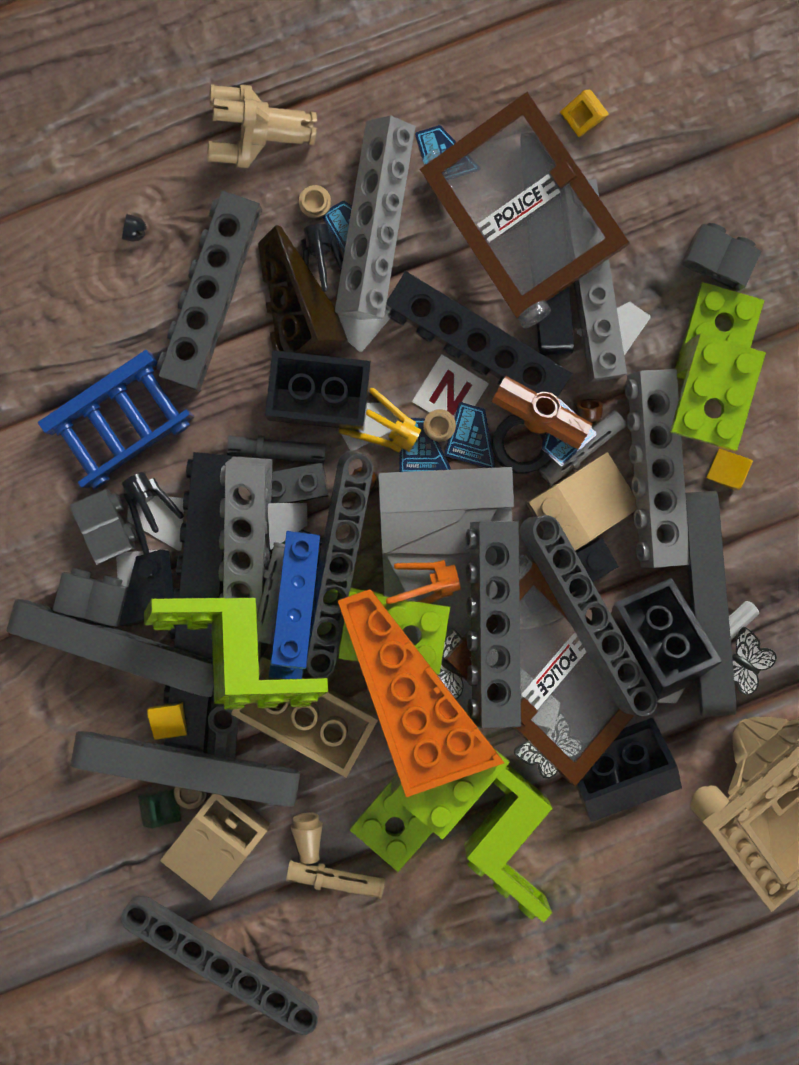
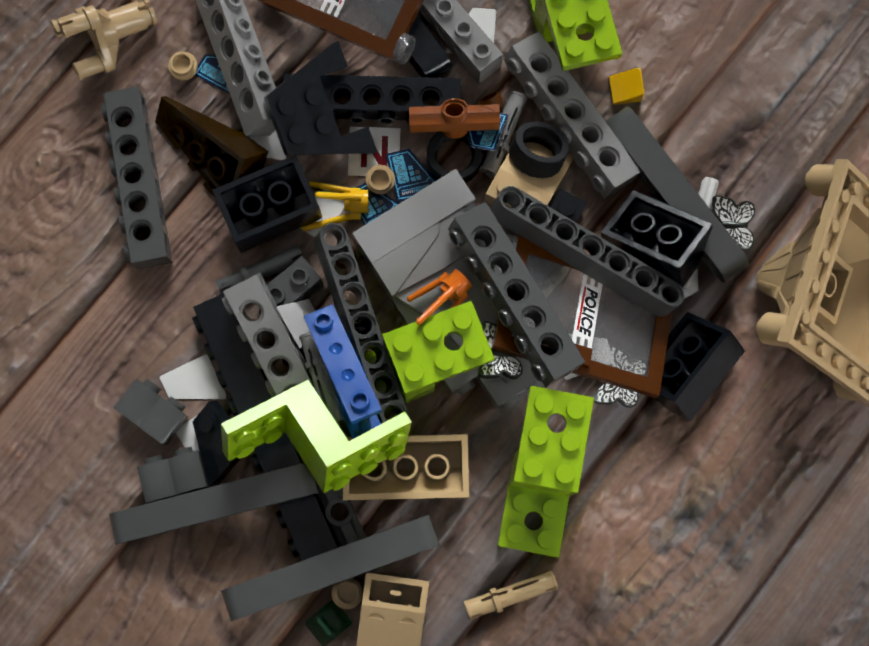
camera: 35 degrees left, 10 degrees down
(88, 405) = (99, 294): blue fence -> none
(133, 228) = (45, 164): black hinge -> none
(139, 492) = (167, 366): black plant -> none
(167, 720) = (293, 537): yellow slope -> none
(307, 835) = (466, 571): tan cone -> none
(318, 241) = (204, 94): black plant -> none
(401, 323) = (305, 116): none -> black wing
(419, 716) = (497, 397): orange wing -> none
(503, 835) = (626, 468): lime bracket -> none
(622, 477) = (531, 163): none -> black tyre

